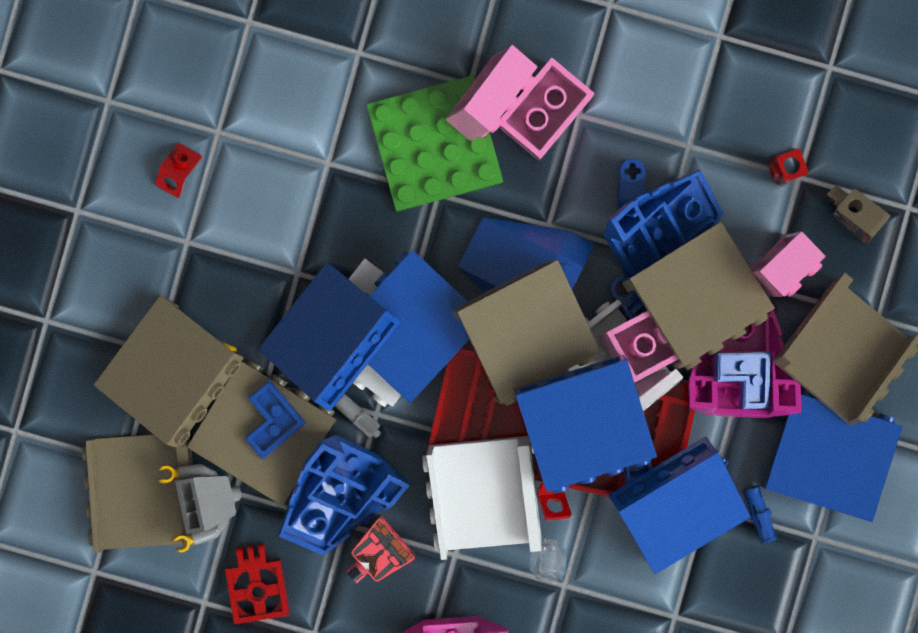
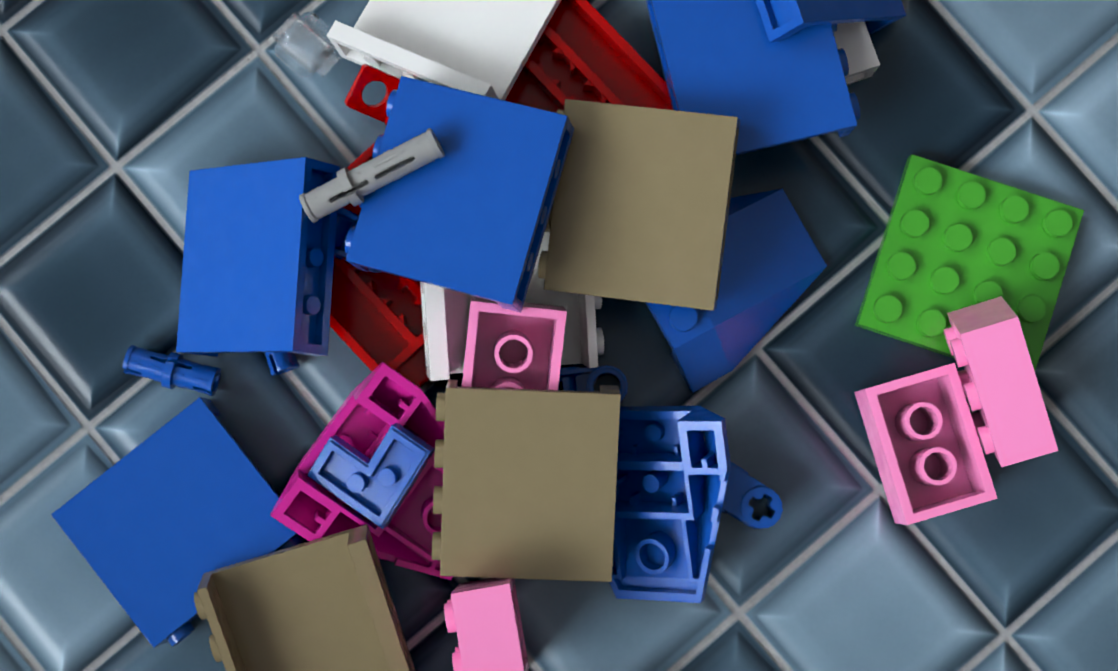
camera: 125 degrees right, 5 degrees down
(617, 477) = (370, 176): none -> light grey pin

